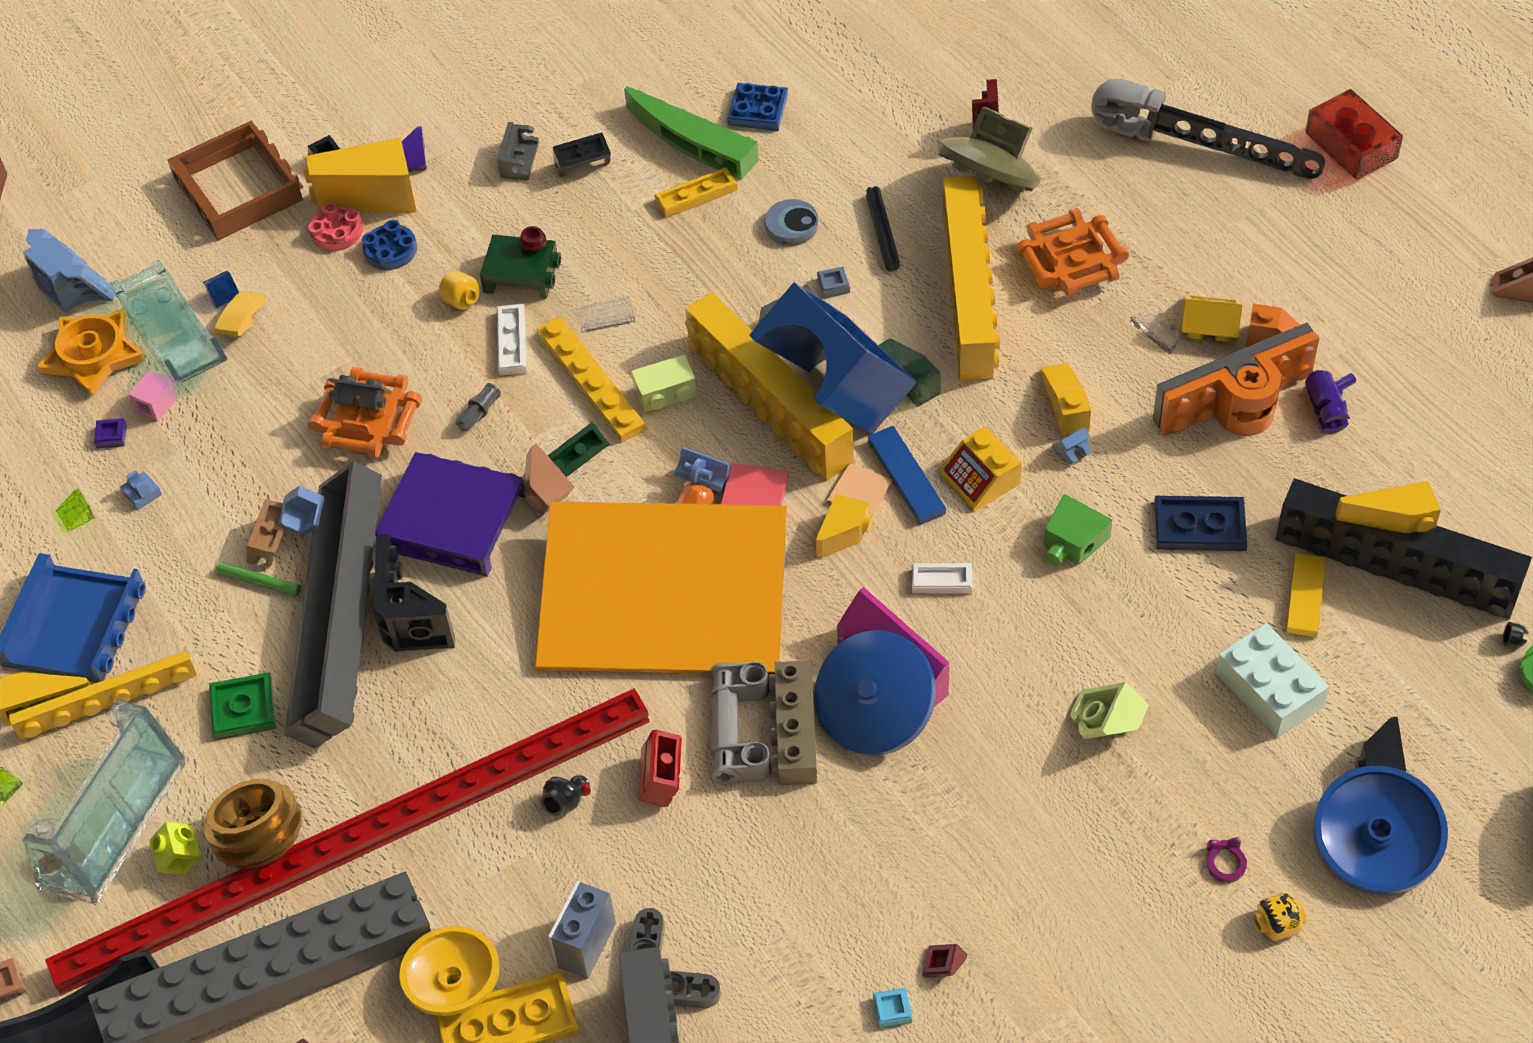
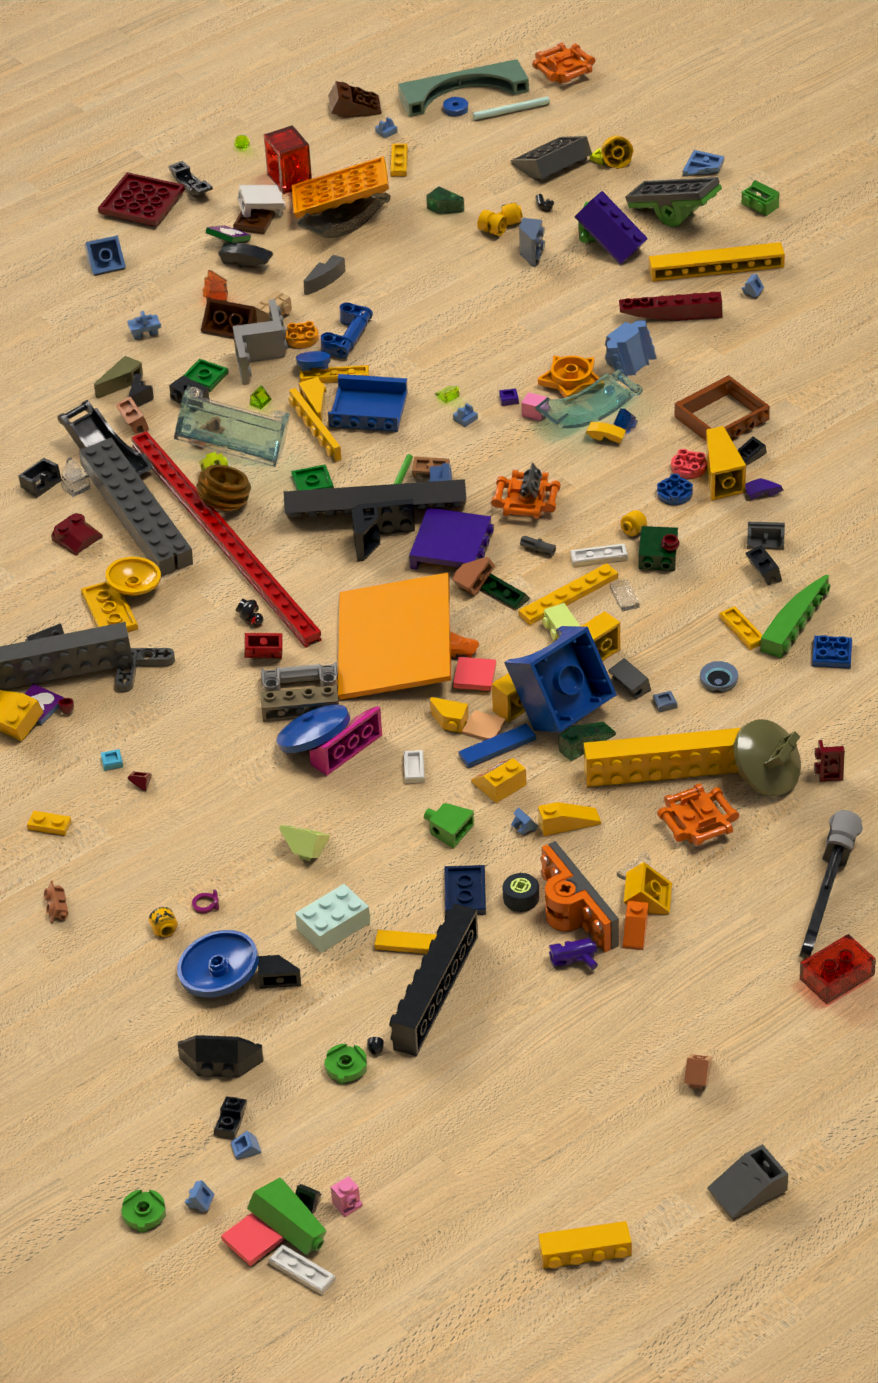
camera: 85 degrees right, 10 degrees down
(582, 929) = (155, 622): sand blue piece -> none
(703, 469) = (487, 644): medium blue hips -> none
(882, 228) = (718, 721): black axle -> none
(1213, 452) = (520, 892): none -> black wheel
(1394, 509) = (444, 953): yellow slope -> none

